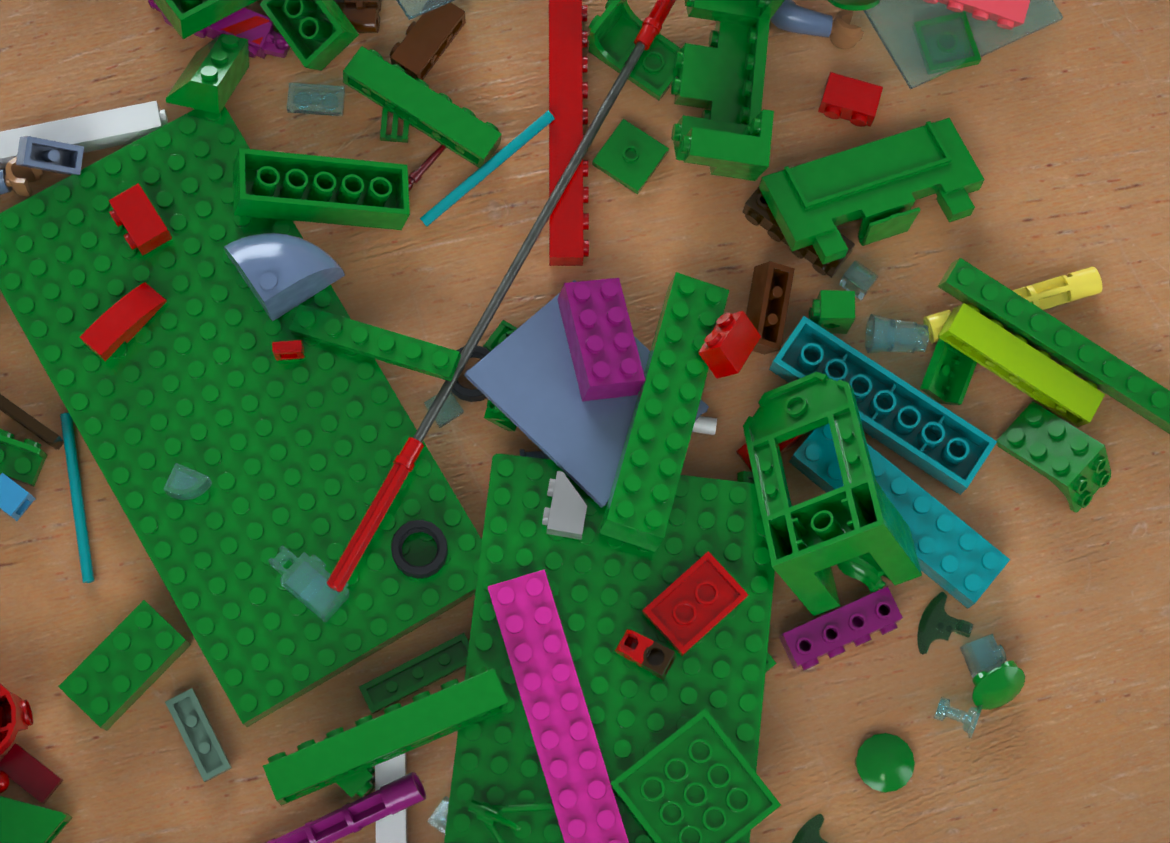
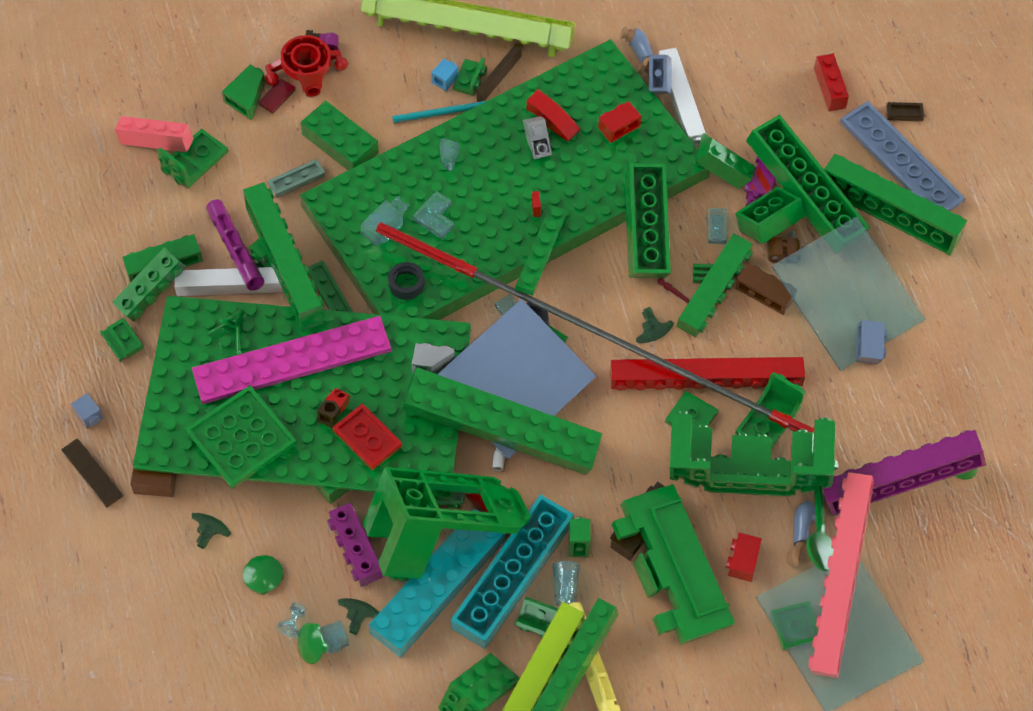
camera: 95 degrees right, 15 degrees down
(160, 344) = (537, 137): none -> light grey slope
(282, 269) = (587, 194): sand blue brick -> none
(303, 512) = (431, 215): none -> clear light blue plate
(485, 202) = (652, 328): none -> clear green piece
(487, 168) = (674, 324): teal piece -> none
(600, 339) = (550, 382): magenta brick -> none
(729, 344) = (548, 459): red brick -> none
(769, 304) = (581, 496): reddish brown brick -> none
(858, 279) = (608, 560): clear light blue brick -> none

